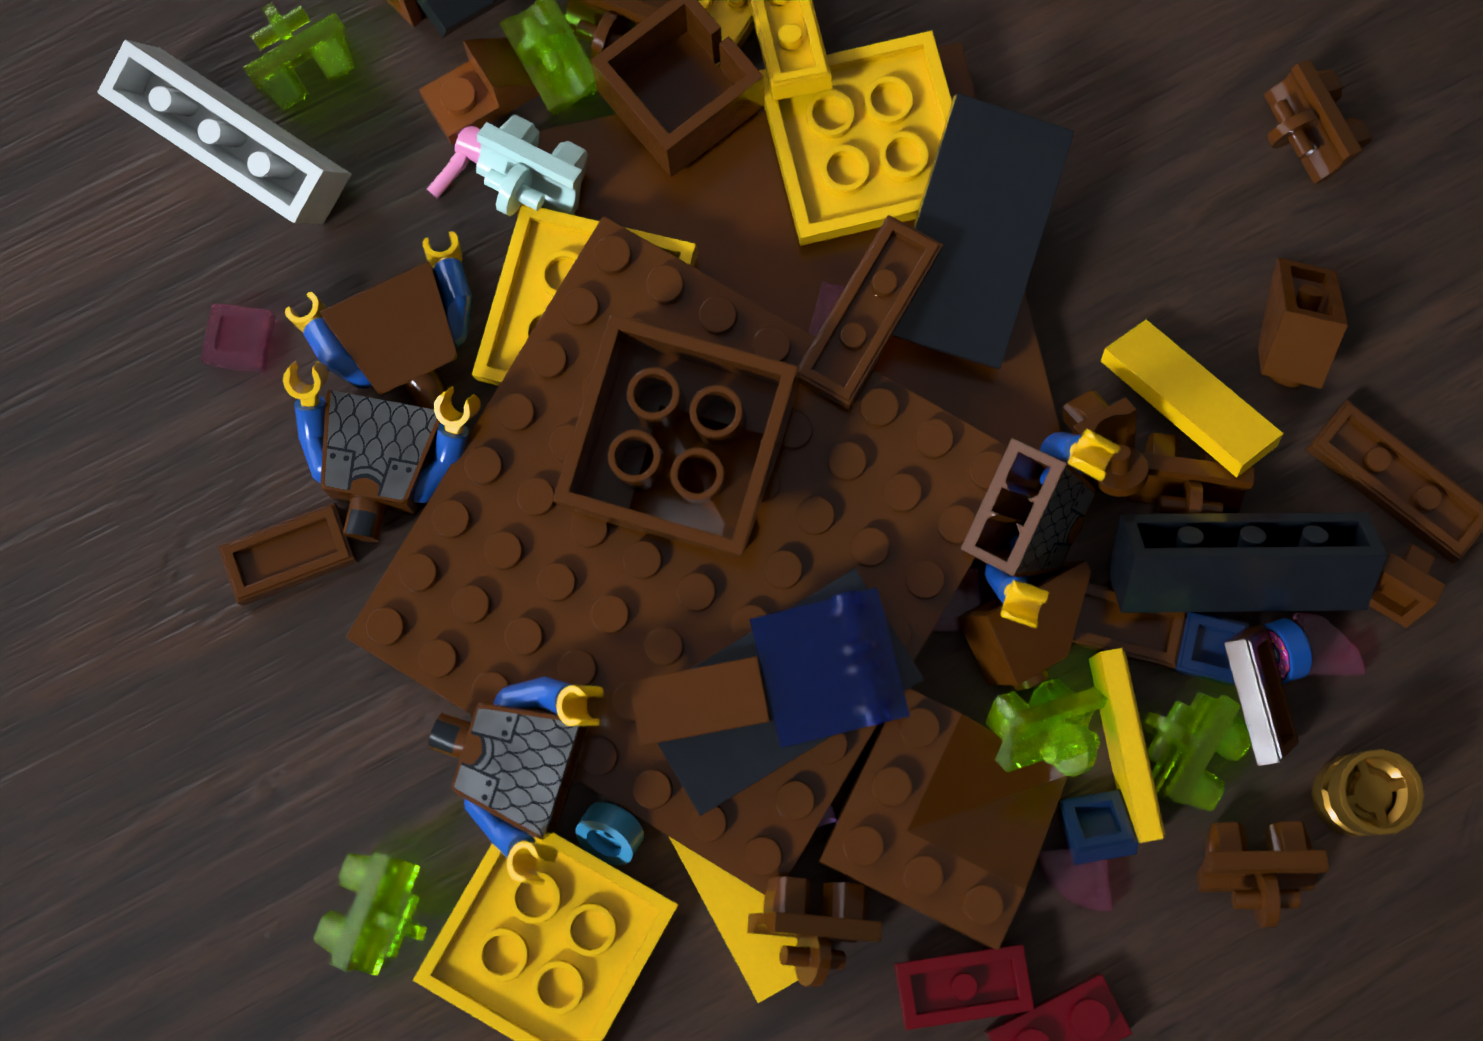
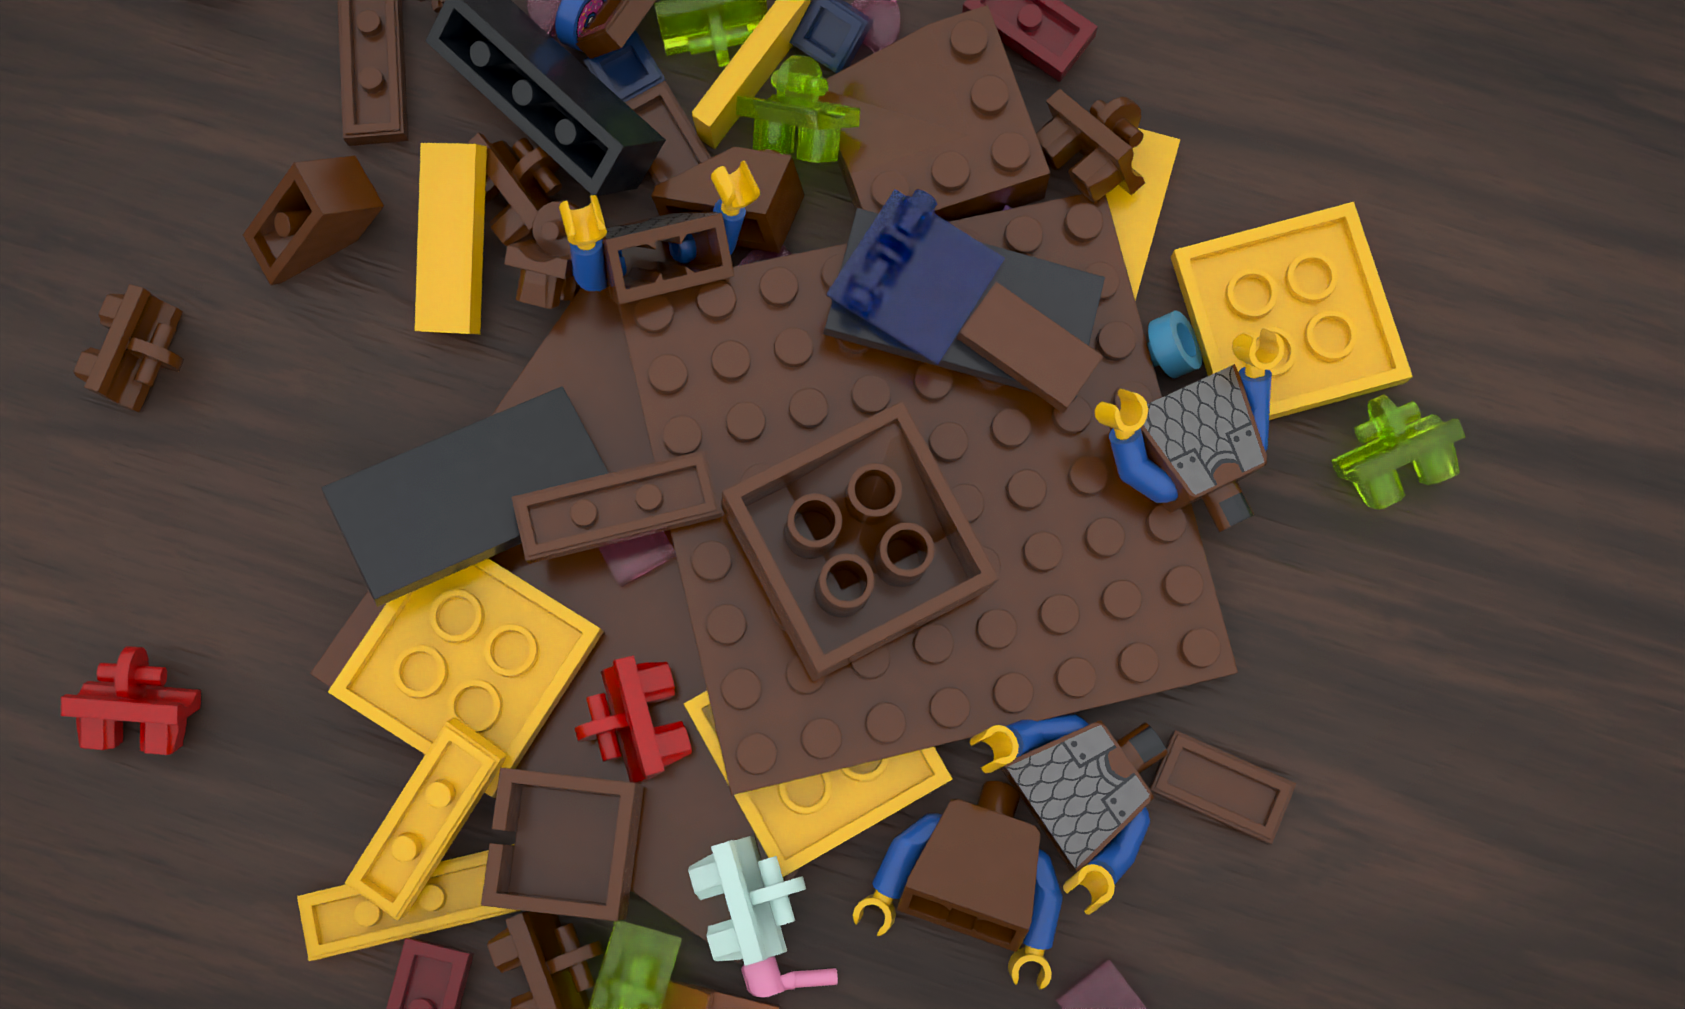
camera: 130 degrees left, 0 degrees up
(691, 198) = (628, 692): none -> red hips

